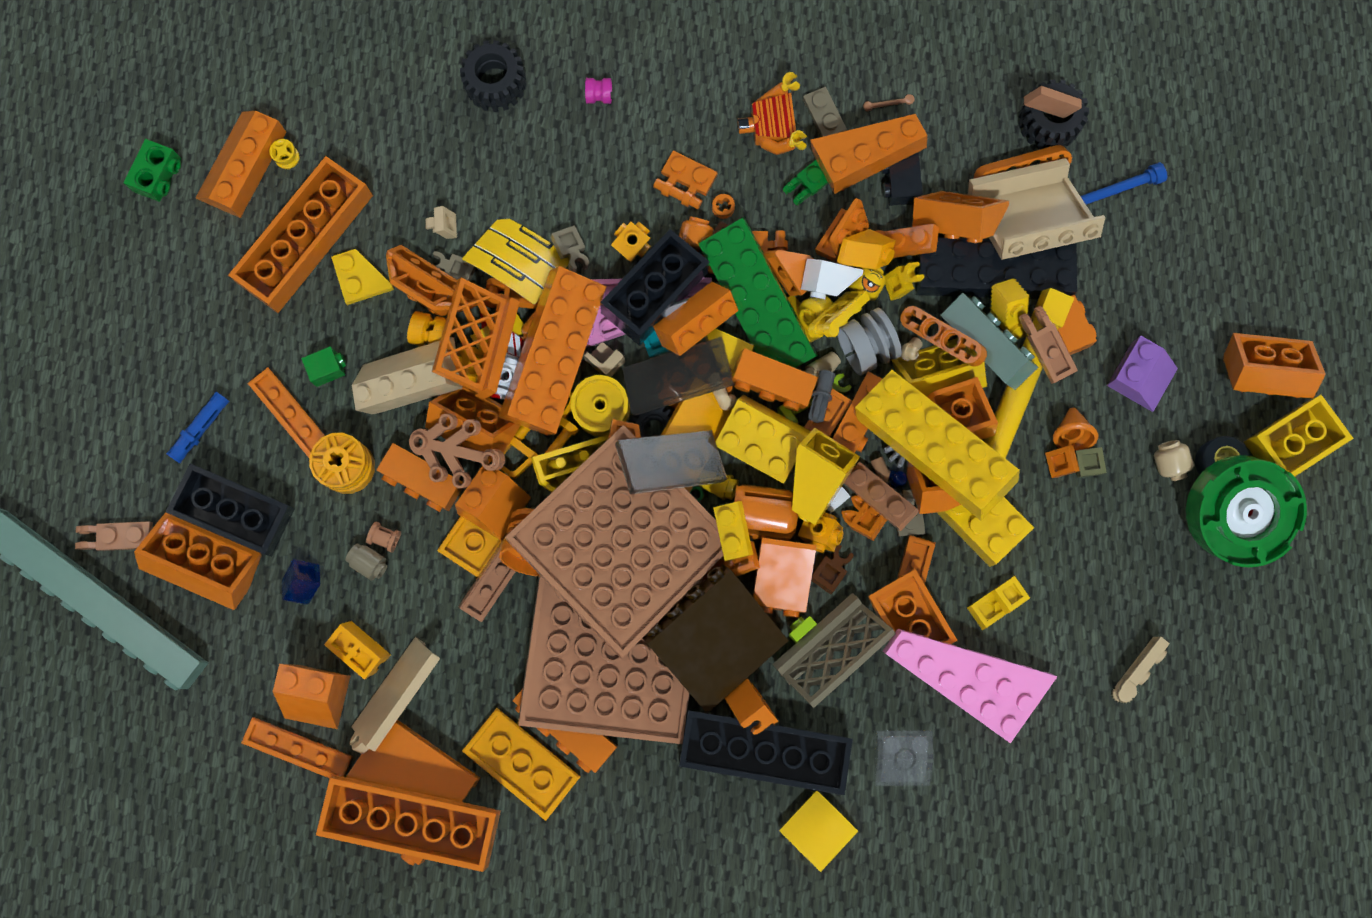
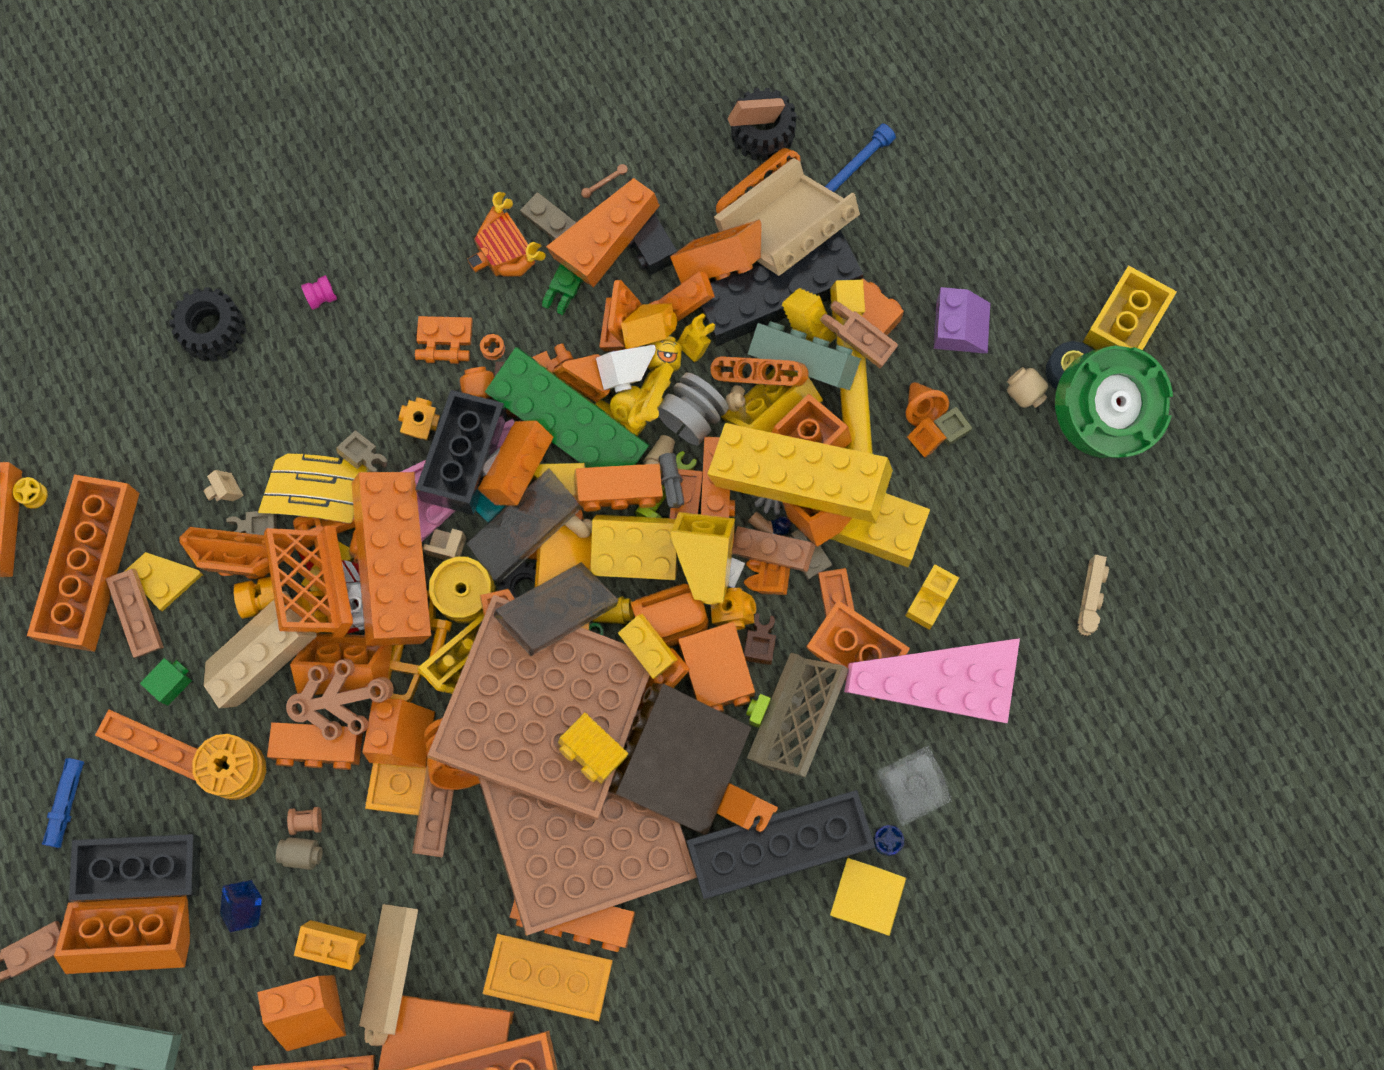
camera: 25 degrees left, 5 degrees down
(323, 296) = (134, 613): none -> nougat plate
(644, 597) = (592, 749): none -> yellow brick
(862, 795) = (893, 835): none -> clear blue wheel
(1273, 365) = (1073, 260): orange brick -> none

